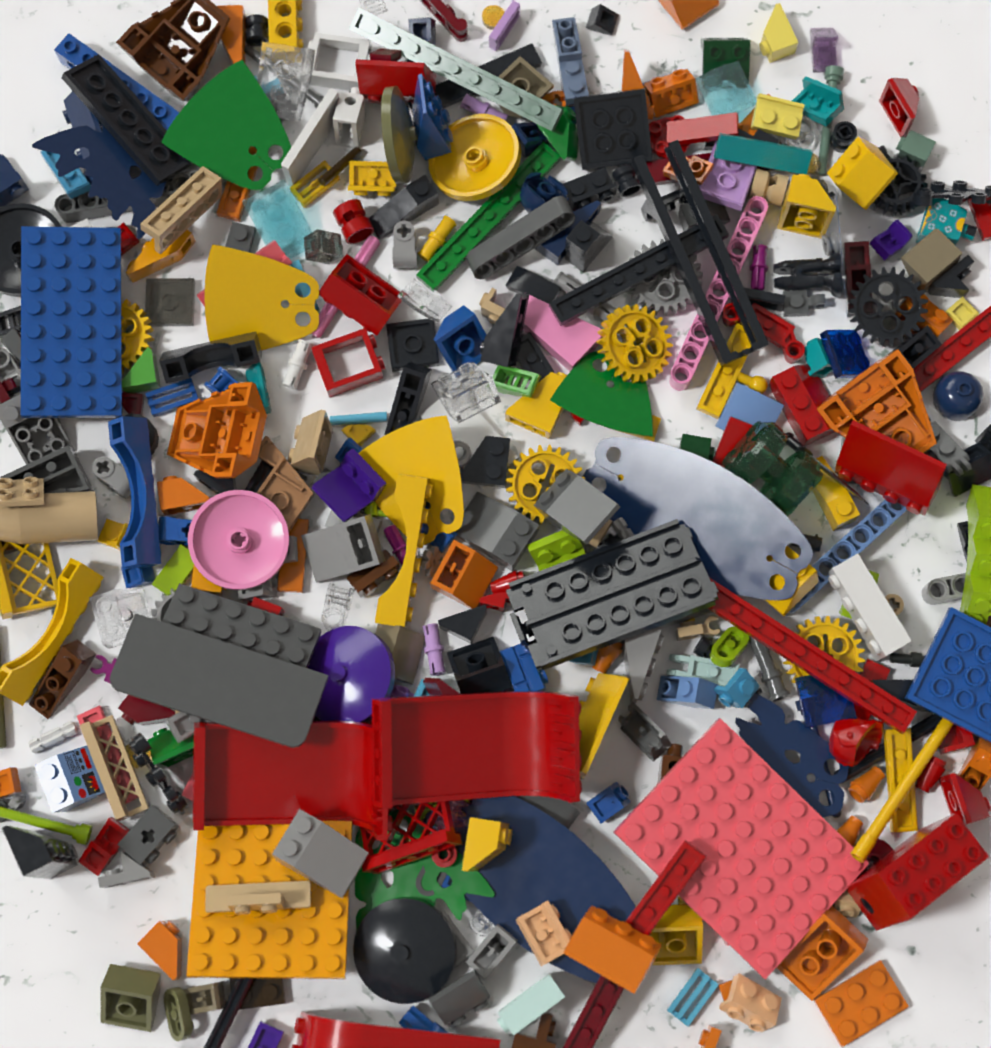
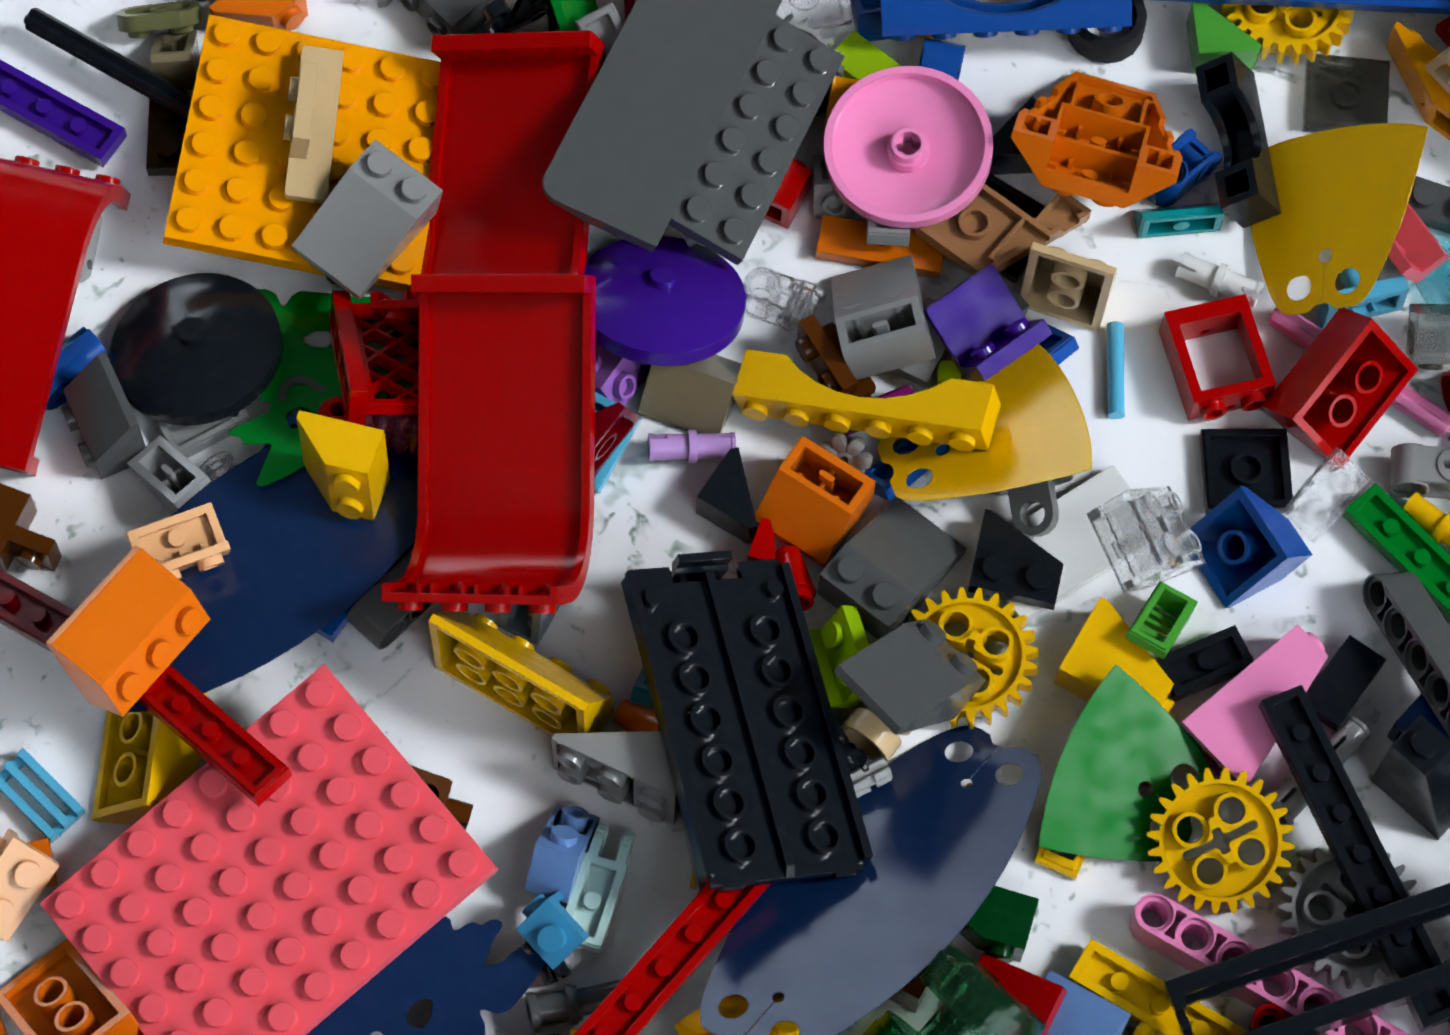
camera: 90 degrees right, 10 degrees down
(133, 402) = (1167, 28): dark red tile -> none
(168, 389) = (1189, 80): blue tile -> none
(179, 496) = (1000, 77): orange slope -> none
(359, 432) = (1087, 368): yellow tile -> none
(408, 396) = (1149, 449): black slope -> none
(479, 668) = (646, 511): black slope -> none
(489, 308) = (1309, 596): tan bracket -> none
(504, 338) = (1245, 609): black slope -> none
(522, 670) = (607, 574): blue brick -> none
(529, 1005) = (71, 521): light aqua window -> none
(609, 802) = (389, 699): blue bracket -> none
(644, 732) = (499, 766): dark grey hinge -> none
(689, 630) = (672, 873): tan plate -> none
(703, 647) = (639, 894): black plate -> none
(725, 649) = (633, 926): lime plate -> none

